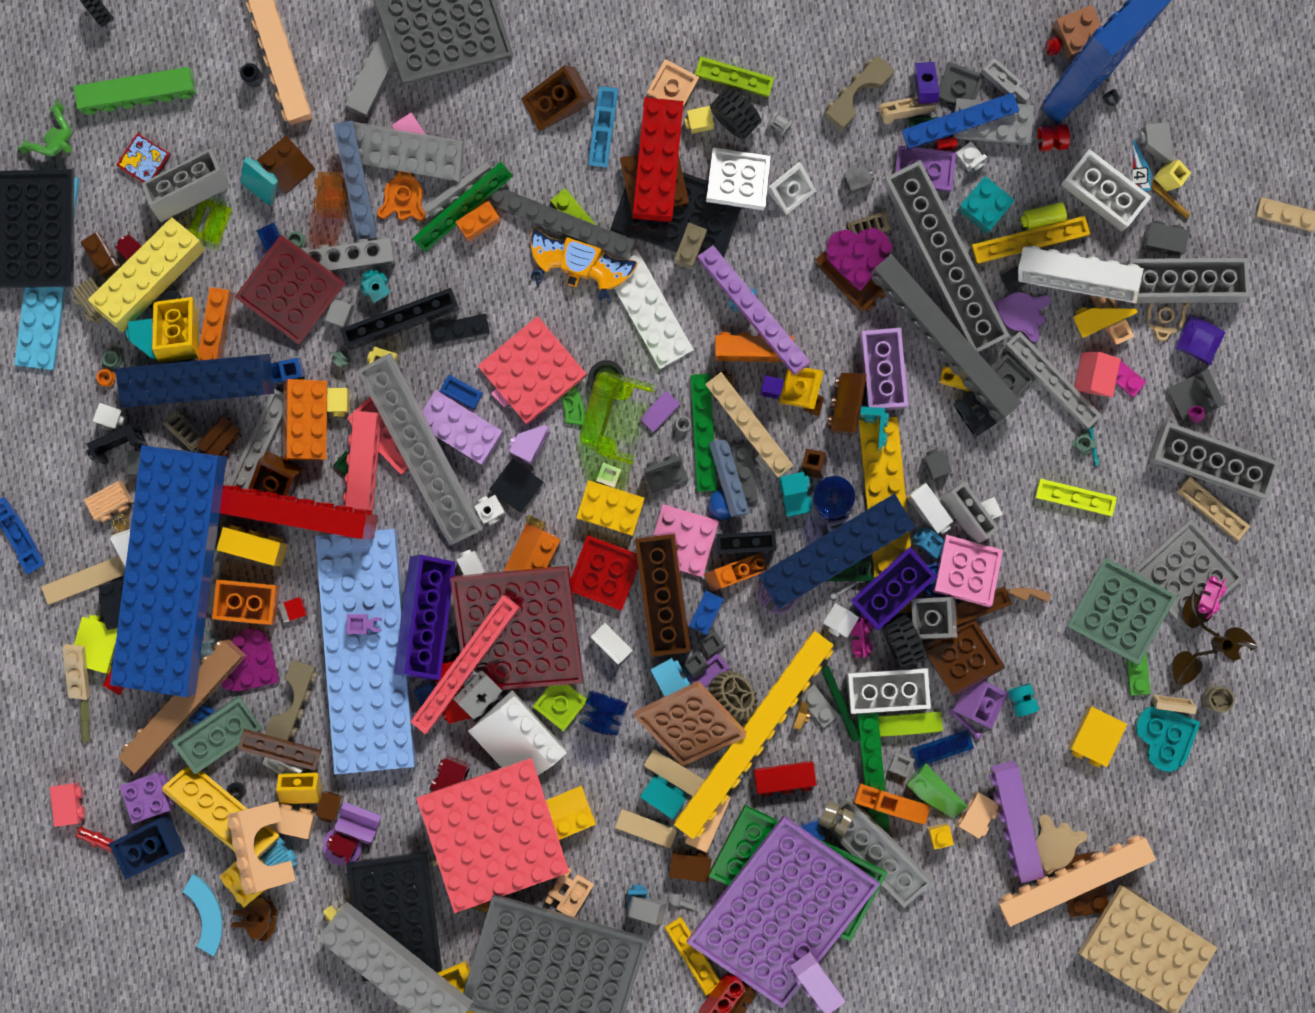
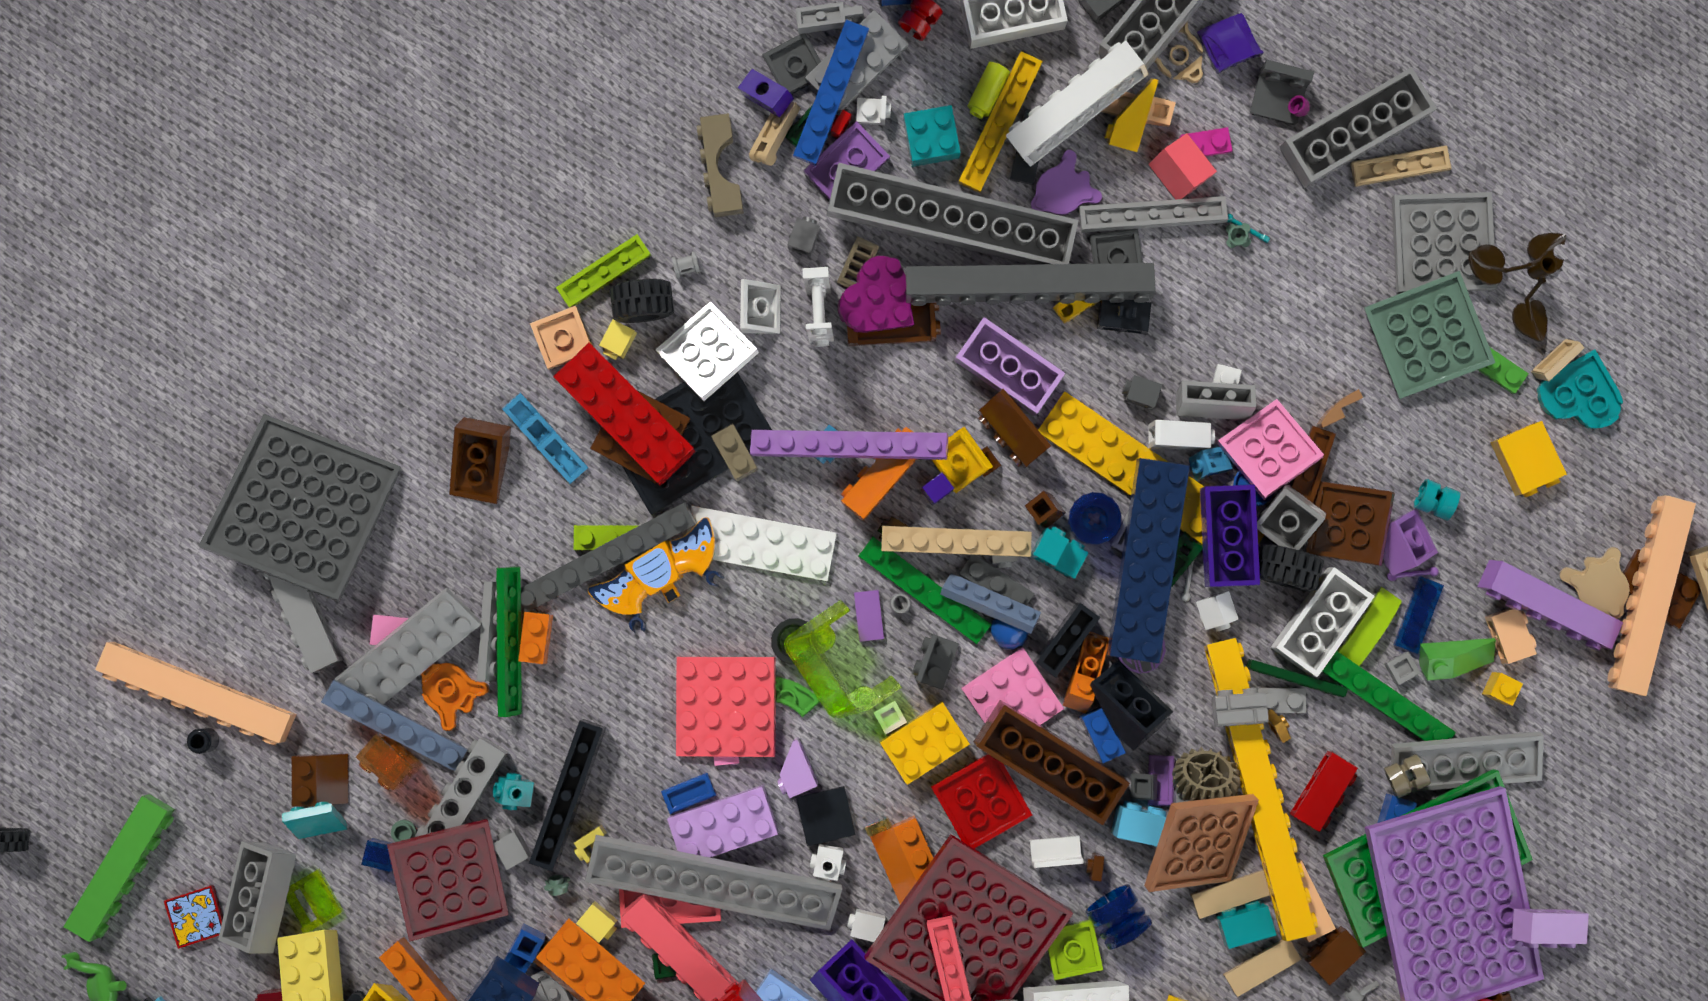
camera: 50 degrees left, 0 degrees up
(459, 329) = (625, 743): black plate -> none
(621, 674) = (1094, 867): none -> reddish brown plate
(711, 643) = (1136, 757): dark grey tile -> none
(737, 613) = (1129, 705): none -> black slope
(792, 681) = (1239, 709): none -> light grey brick
(834, 212) = (818, 284): none -> white fence
(862, 645) = (1256, 610): dark pink hinge -> none
(870, 415) = (1045, 416): teal bracket -> none
(891, 804) = (1434, 710): orange slope -> none
(1075, 497) = (1283, 287): neon yellow plate -> none
(1215, 589) = (1485, 230): dark pink hinge -> none
(1218, 699) = (1587, 314): dark tan wheel -> none

